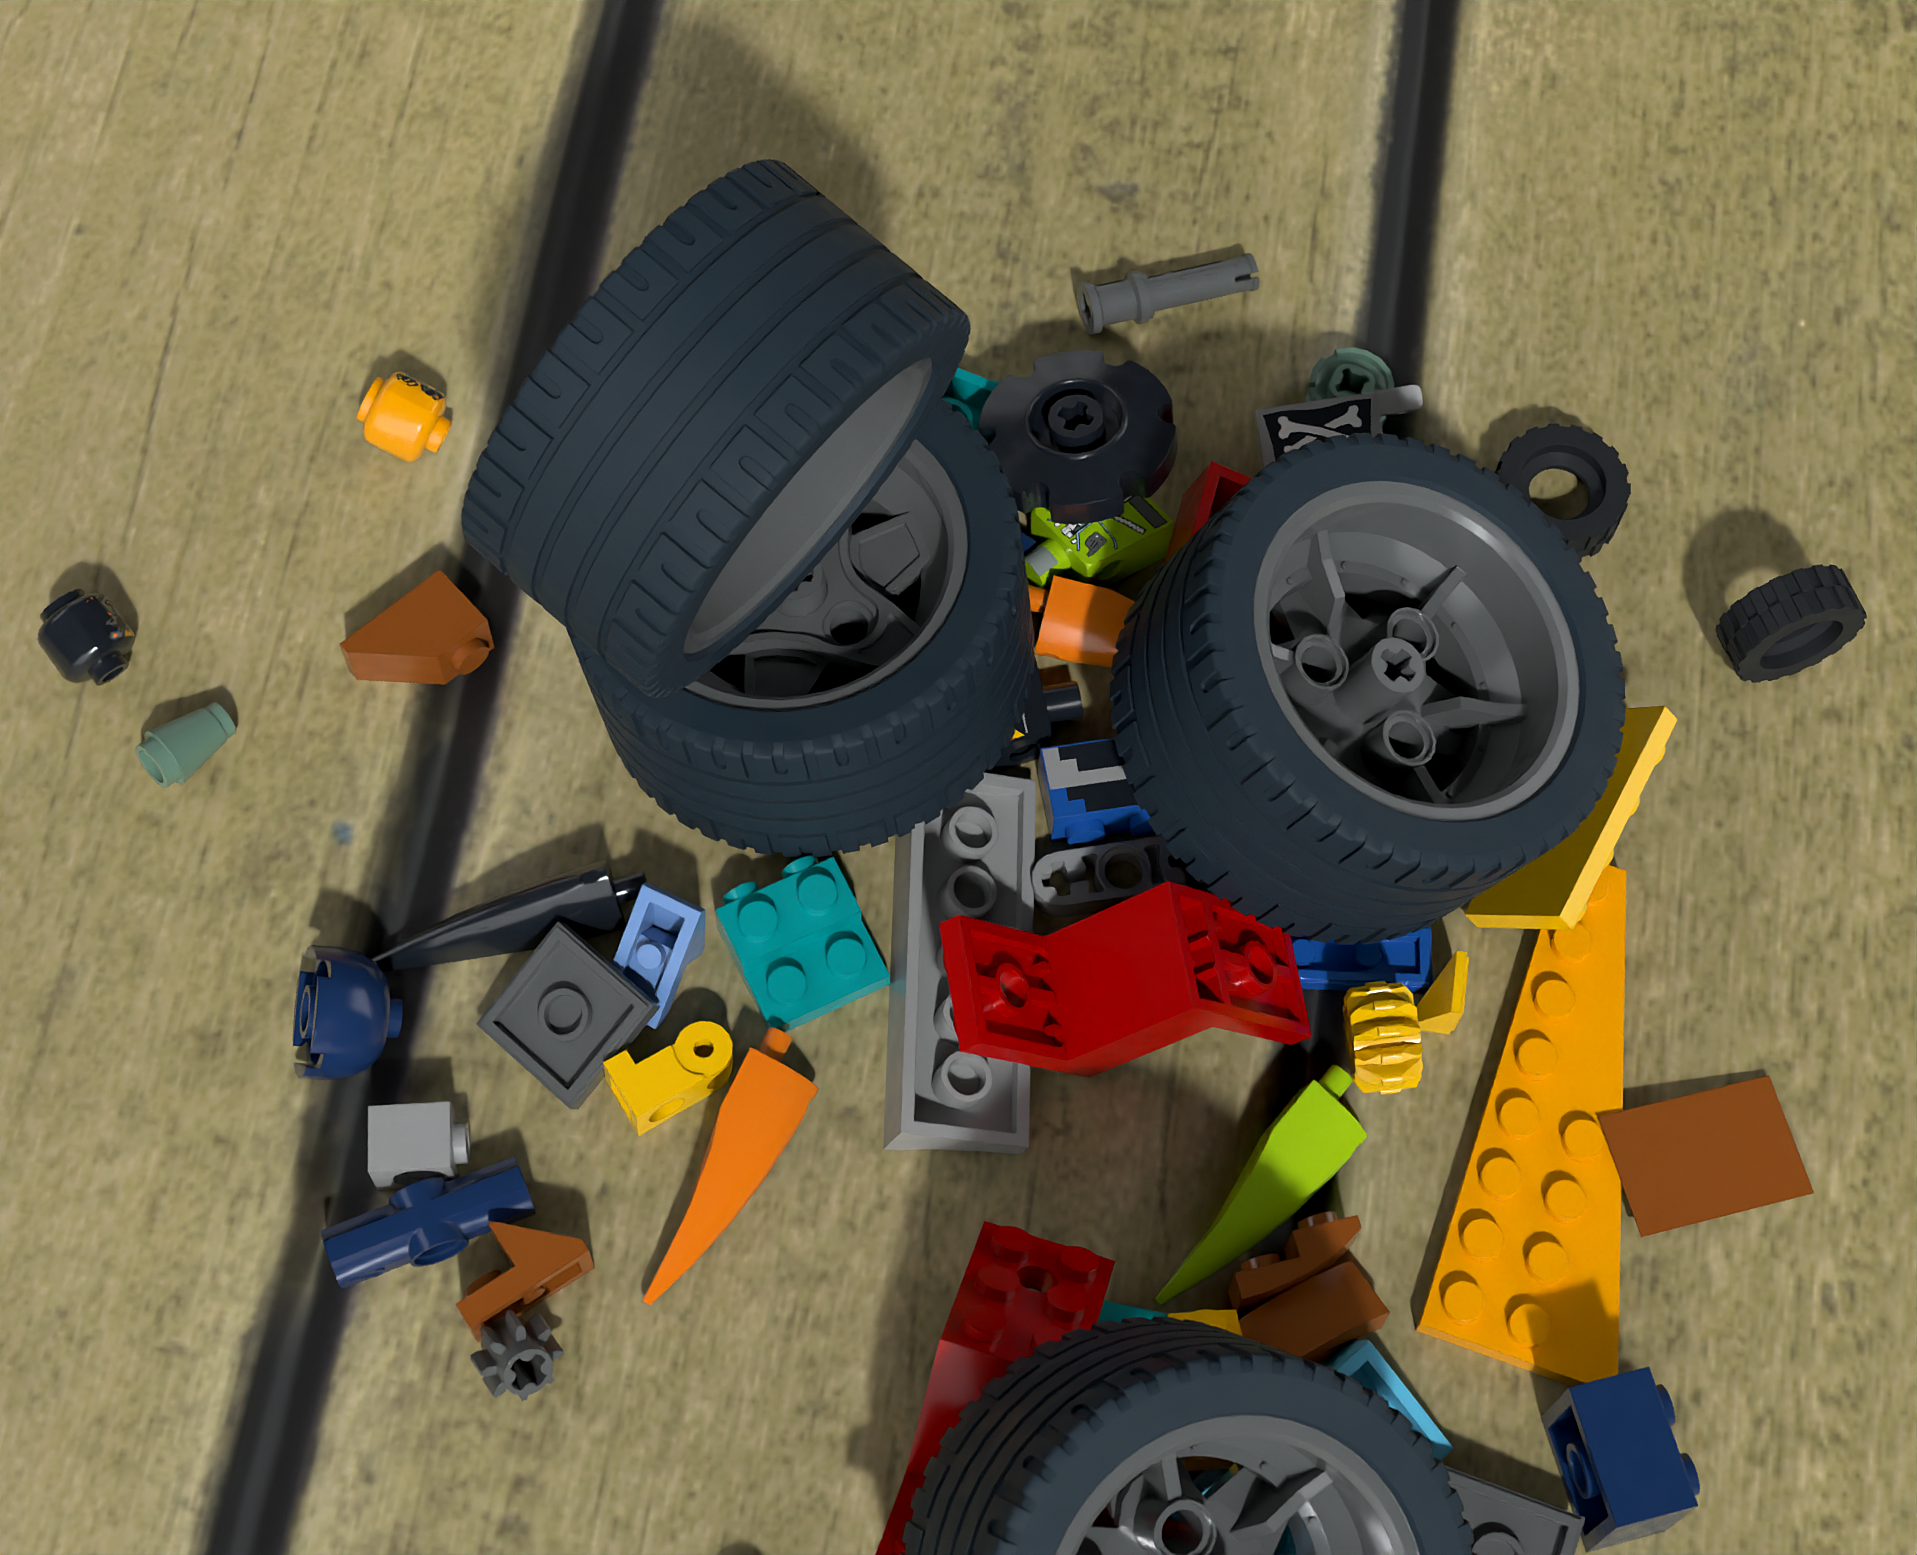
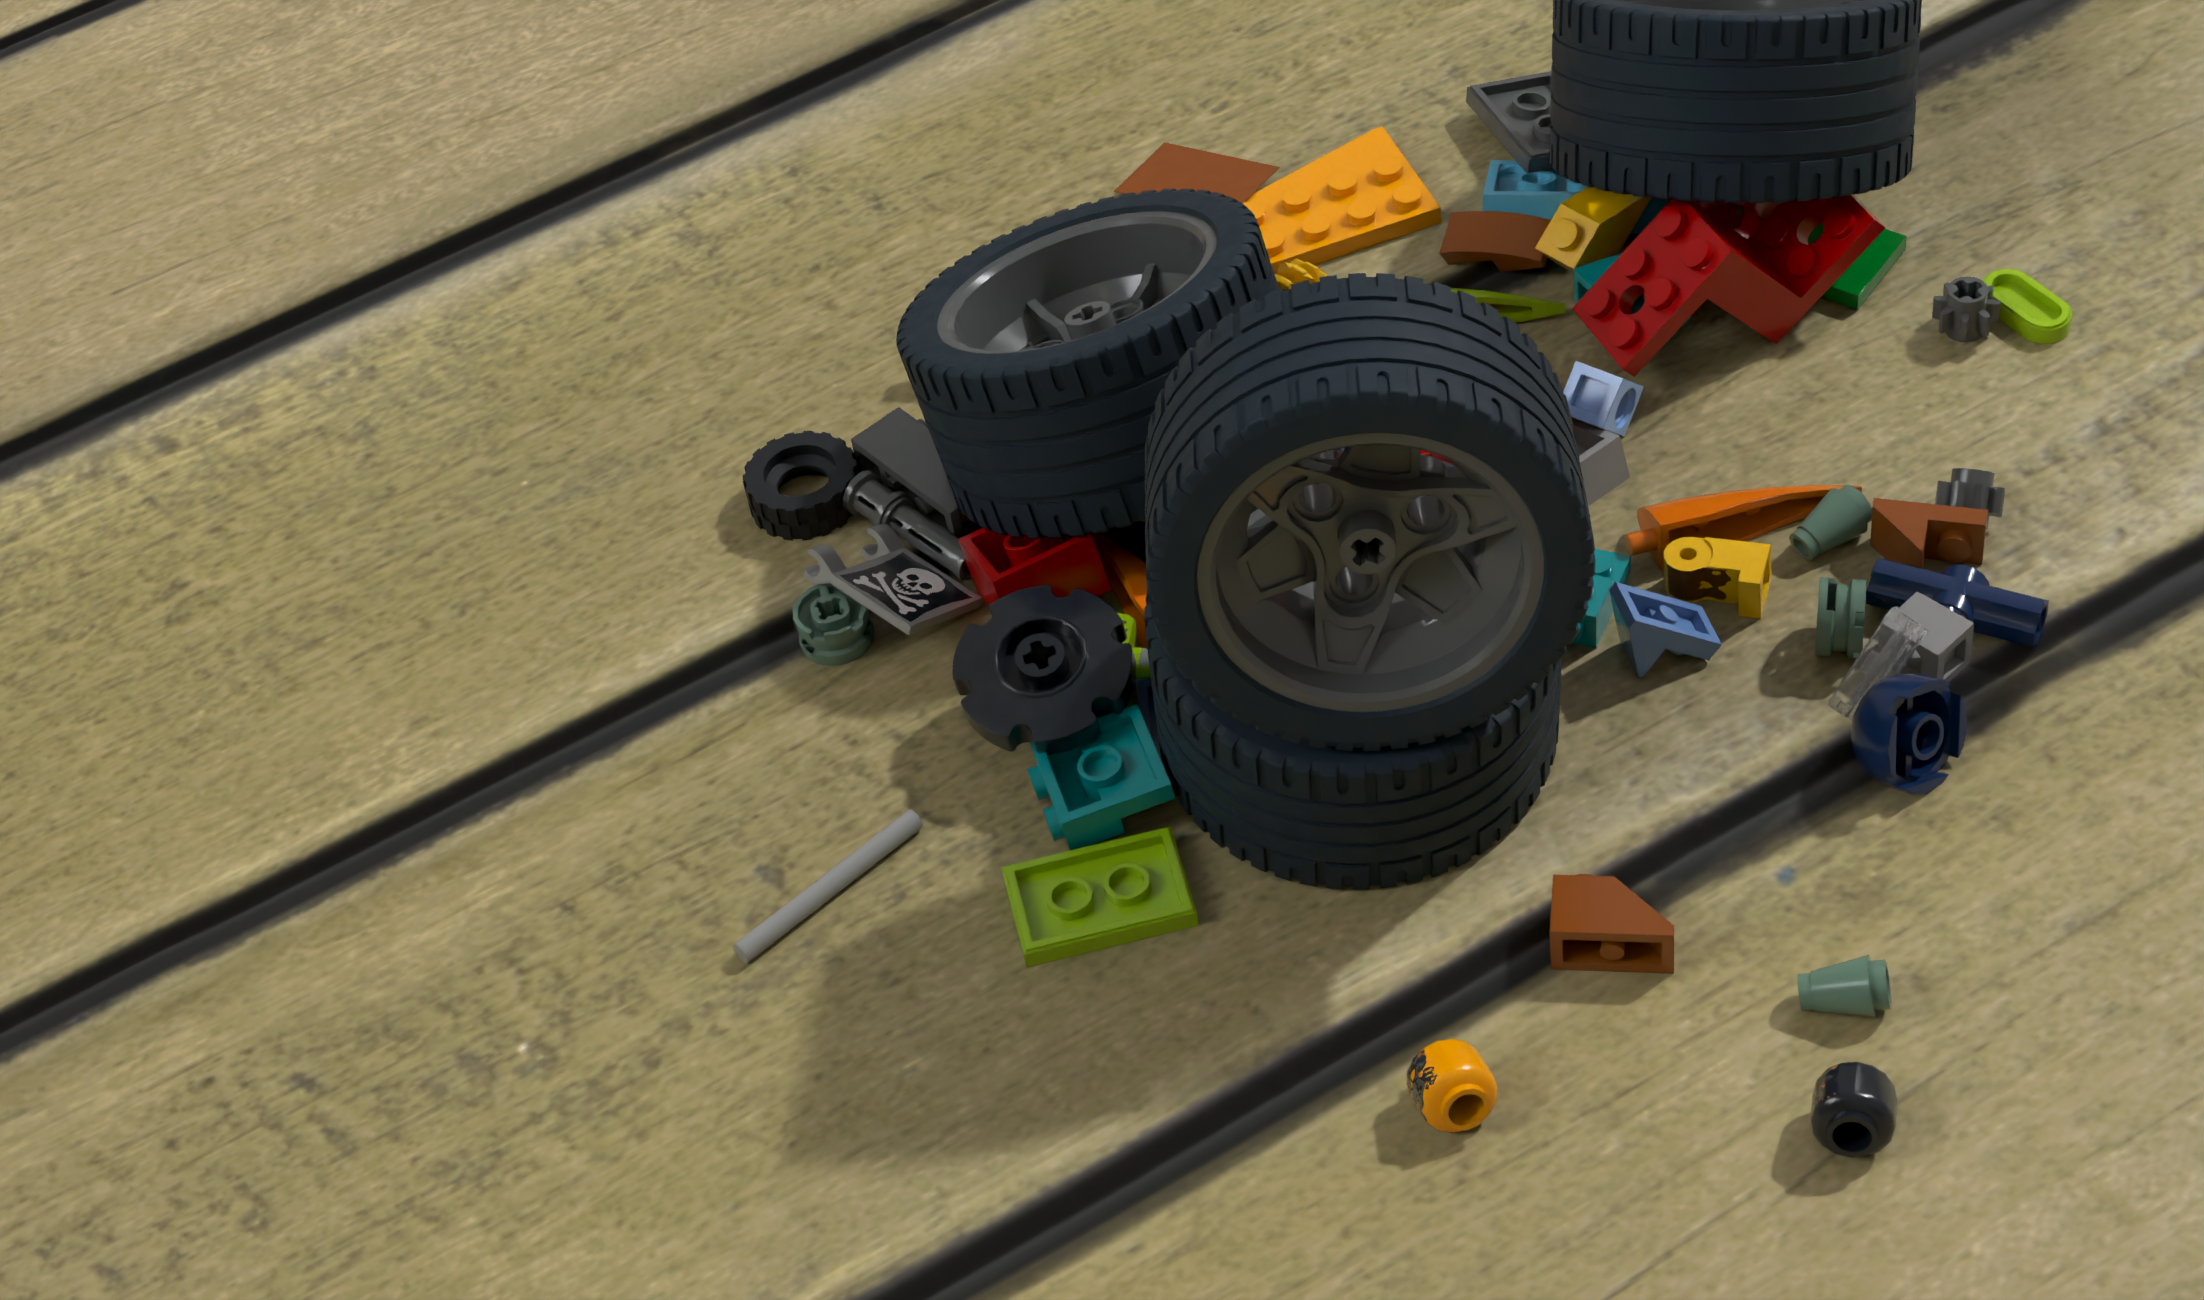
camera: 120 degrees left, 20 degrees down
(410, 1048) = (1881, 657): none -> clear tile
(499, 1103) = (1840, 617): none -> sand green wheel
(520, 919) = (1711, 719): black piece -> none
(567, 1015) = (1751, 641): dark grey tile -> none
(626, 1228) = (1835, 520): none -> sand green cone
(971, 1171) = (1601, 398): none -> light blue brick
(1058, 210) = (827, 886): none -> light grey bar
(1140, 296) = (863, 775): dark grey pin -> none
(1309, 1251) = (1471, 259): dark orange slope -> none
(1621, 1458) = (1424, 80): dark blue brick -> none
(1790, 623) = (816, 290): black tyre -> none

